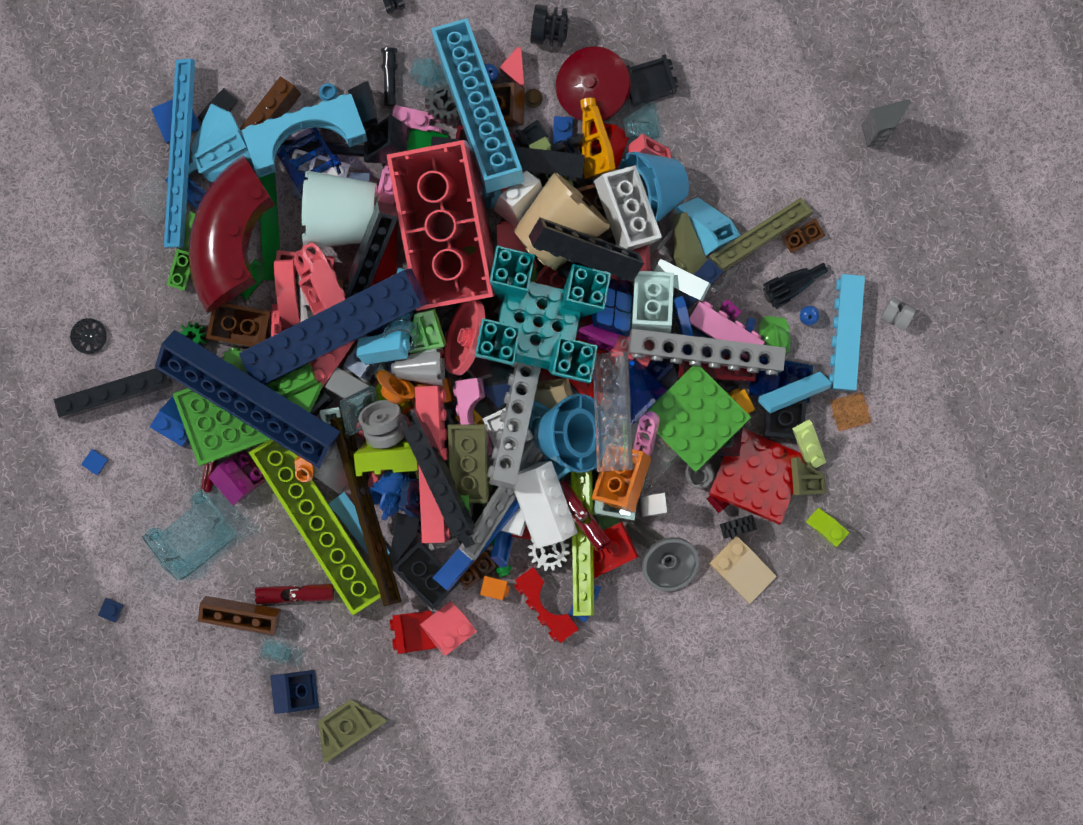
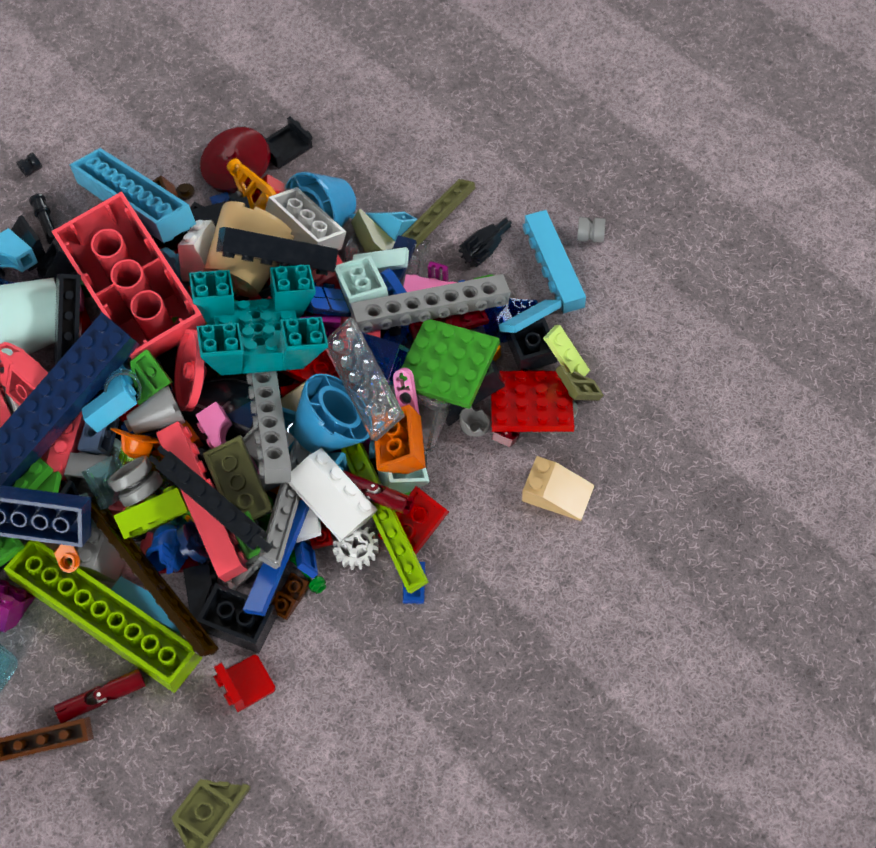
camera: 25 degrees left, 25 degrees down
(275, 650) = (97, 762): clear light blue brick -> none
(294, 691) = (132, 797): dark blue slope -> none
(424, 71) = (75, 203): clear light blue brick -> none
(448, 628) = (281, 662): coral slope -> none
(495, 588) = (314, 604): orange brick -> none
(513, 68) = (156, 169): coral slope -> none
(549, 26) = (177, 130): black wheel -> none
(560, 625) = (398, 612): red arch -> none
(642, 122) = (287, 169): clear light blue wing -> none
(642, 533) = (446, 497): clear smoke hinge -> none
(653, 505) = (442, 458): white slope -> none
(671, 573) = (496, 508): dark grey dish -> none
(738, 526) = (535, 446): black tyre -> none
(803, 236) = (477, 206): reddish brown slope -> none
(805, 312) = (512, 261): blue piece -> none
(827, 527) = (621, 421): lime slope -> none
(850, 411) = (590, 323): clear orange piece -> none
(882, 122) = (501, 89): dark grey slope -> none

